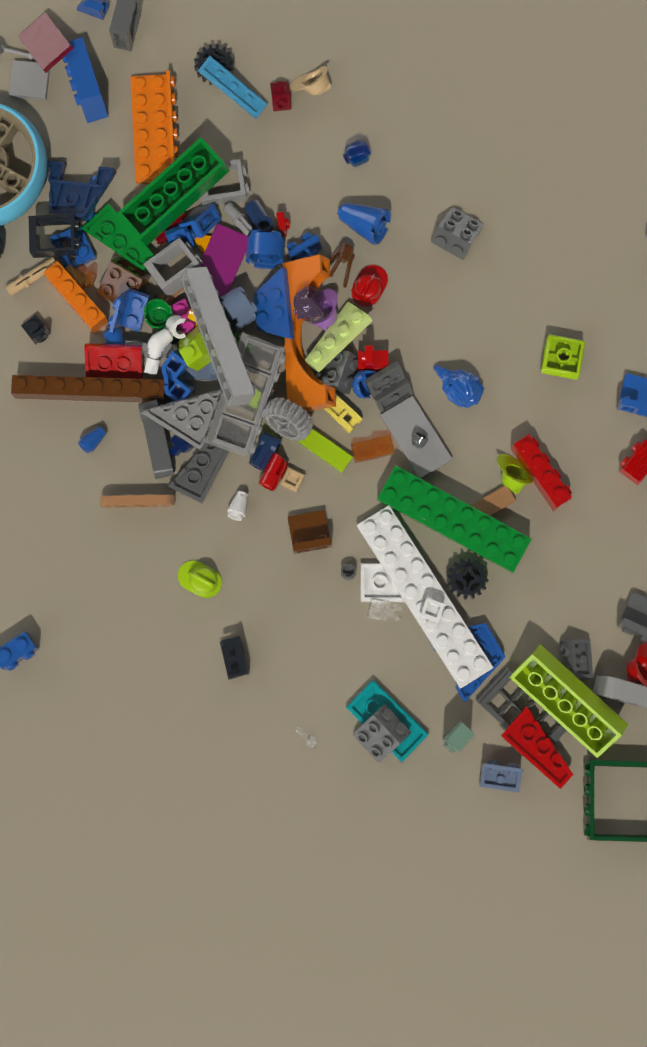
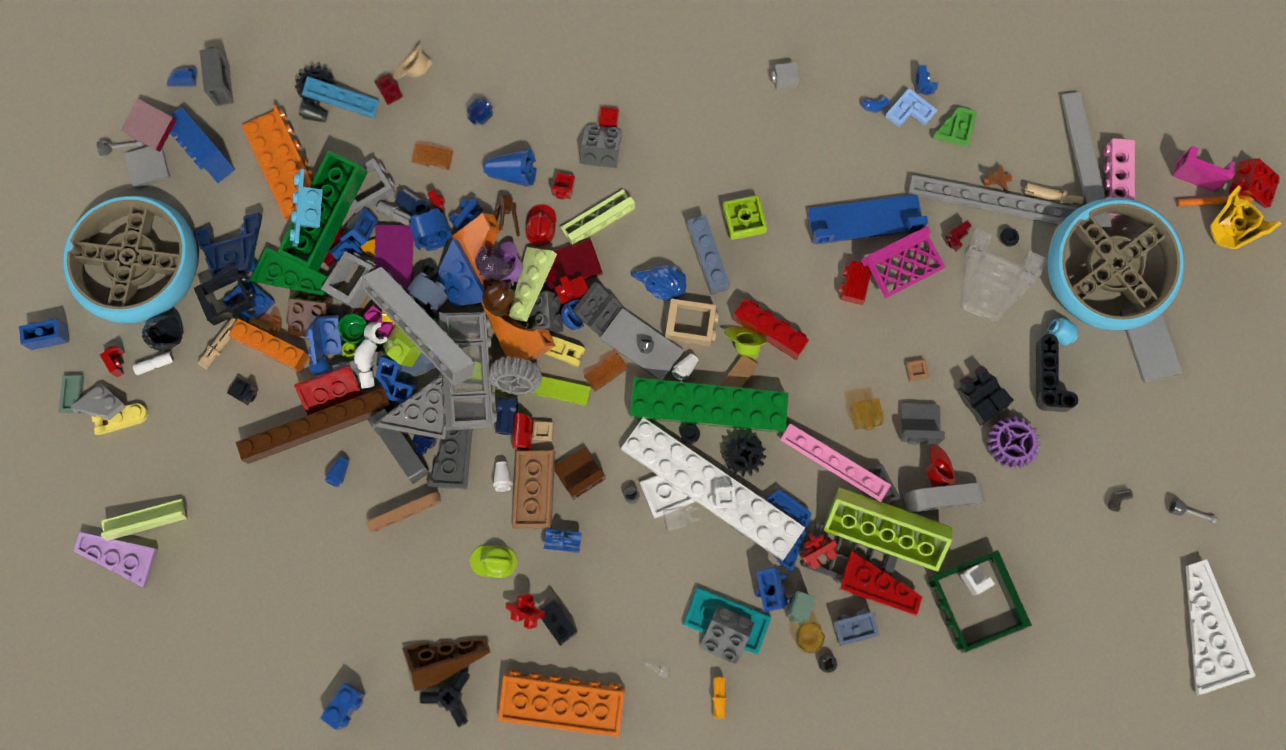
camera: 20 degrees left, 5 degrees down
(103, 679) = (455, 689): none -> black bush
(111, 647) = (436, 662): none -> reddish brown wedge
(143, 329) = (345, 349): none -> lime plate
(160, 184) = (307, 208): none -> medium azure bracket
(201, 91) = (311, 112): none -> pearl dark grey cone
(209, 730) = (561, 703): none -> orange bracket
(210, 633) = (525, 610): none -> red hips
(254, 284) = (433, 266): none -> pearl dark grey bush
(262, 529) = (533, 489): none -> medium nougat tile
(269, 587) = (562, 540): none -> blue hips
(296, 178) = (431, 155): none -> clear orange slope
(302, 339) = (498, 297): none -> reddish brown piece
(351, 785) = (719, 698): none -> light orange axle
(385, 334) = (574, 262): none -> dark red tile
(405, 257) = (563, 186): none -> red bracket
(425, 538) = (690, 434): none -> black tile
(426, 304) = (599, 221): none -> yellowish green fence
(439, 710) = (772, 589): none -> blue piece
(447, 440) = (691, 338): none -> tan window
(447, 475) = (685, 367): none -> white cone
(454, 767) = (809, 637): none -> clear yellow hair
(455, 796) = (833, 661): none -> pearl dark grey bush
(476, 208) = (609, 117): none -> red plate
(495, 690) = (817, 547): none -> red hips
(513, 378) = (708, 255): none -> sand blue brick
(547, 620) = (836, 462): none -> bright pink plate
(596, 588) = (867, 414): none -> clear yellow head
(628, 781) = (976, 580): none -> white panel

